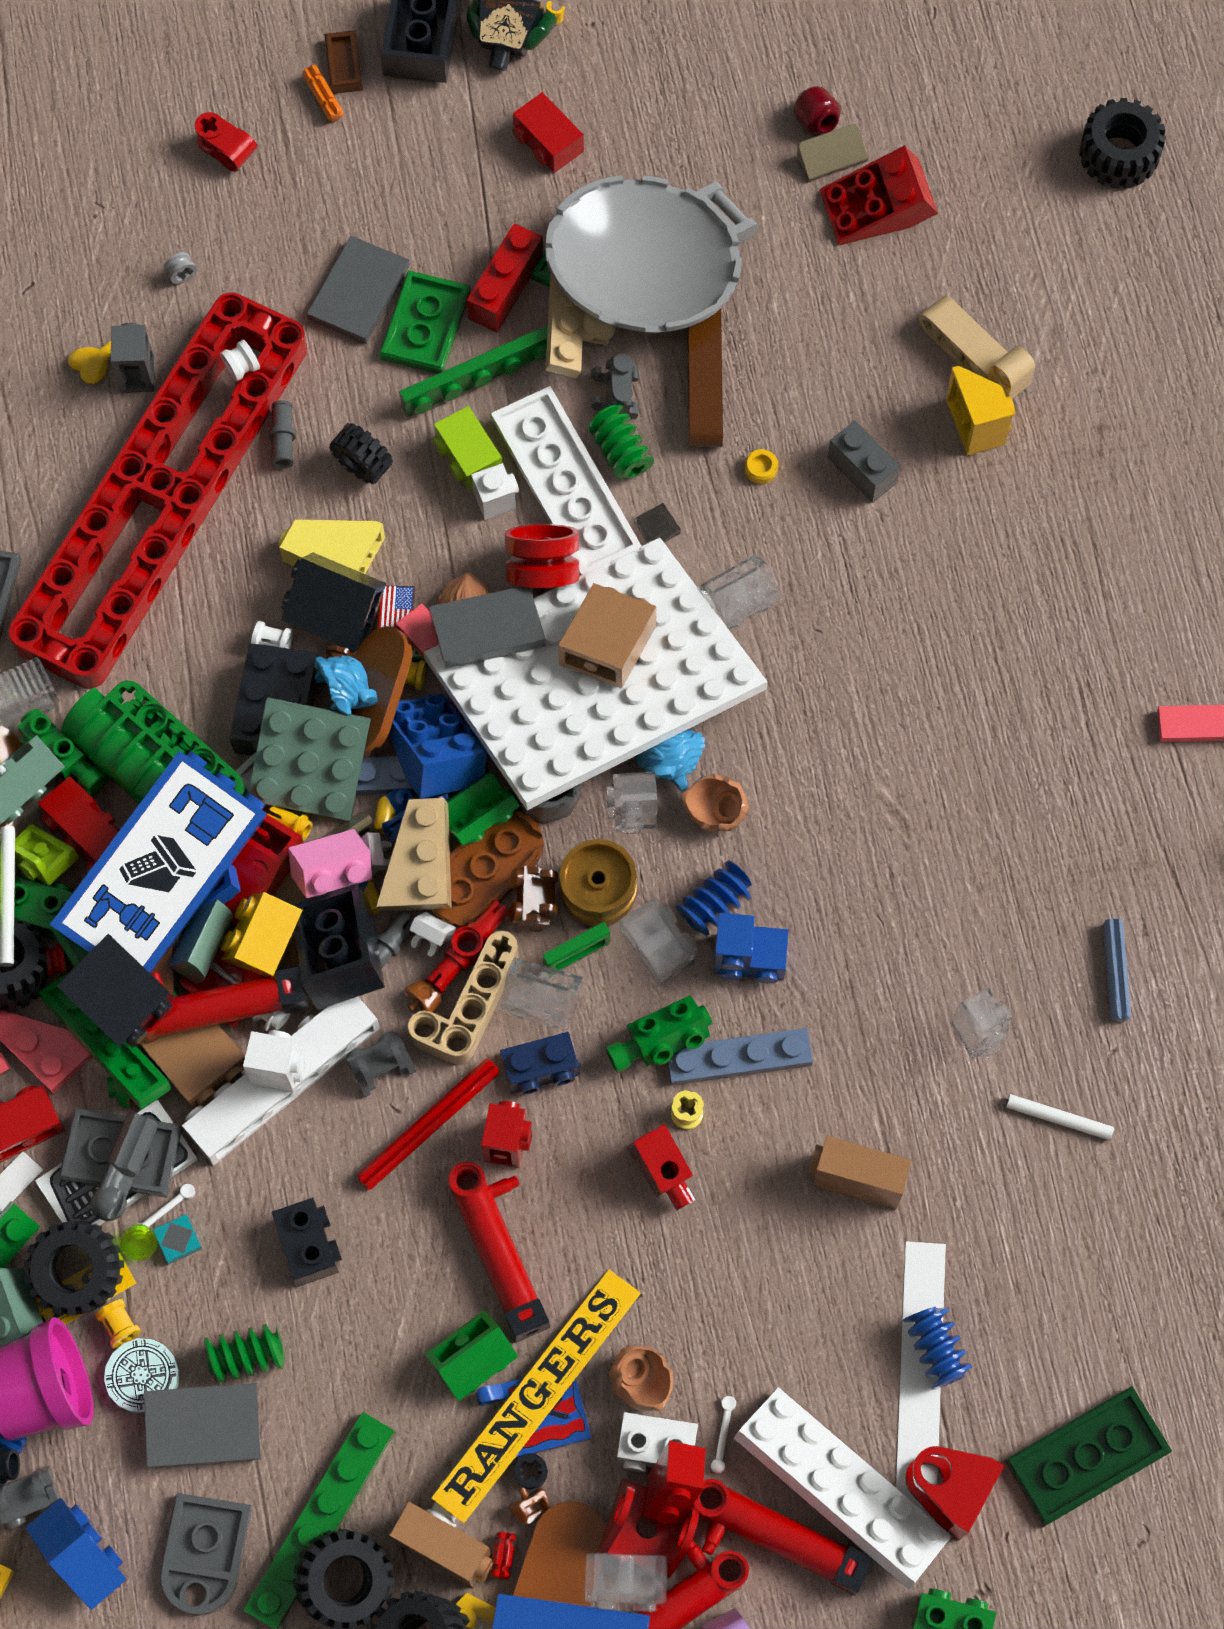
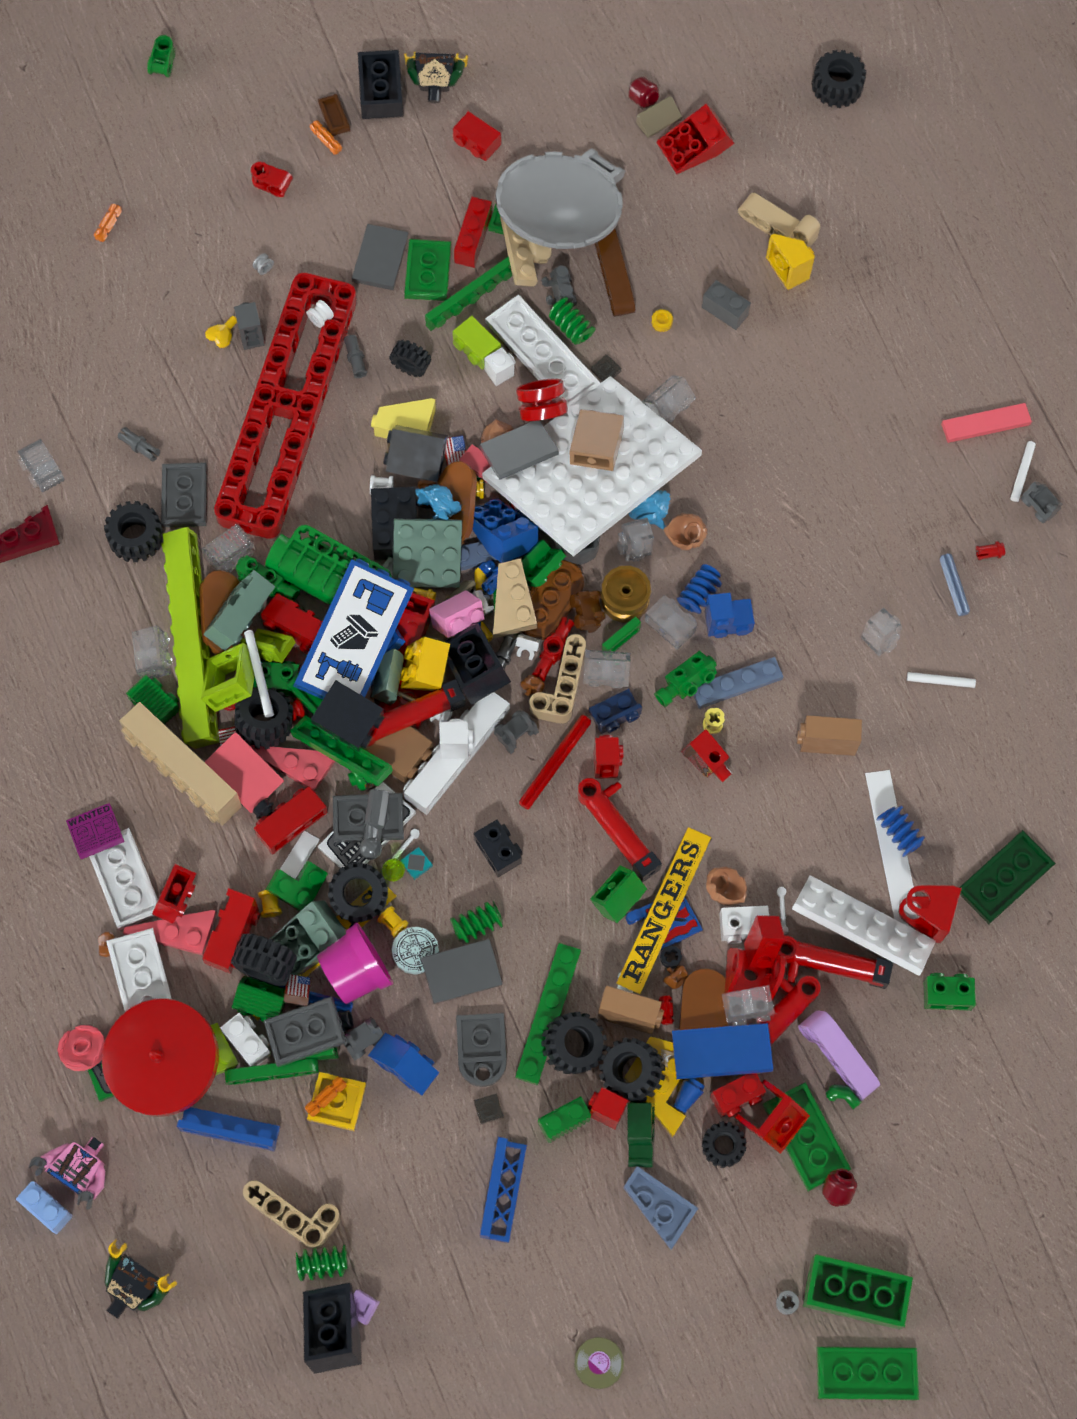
camera: 15 degrees left, 0 degrees up
(1186, 927) = (990, 551): none -> red pin

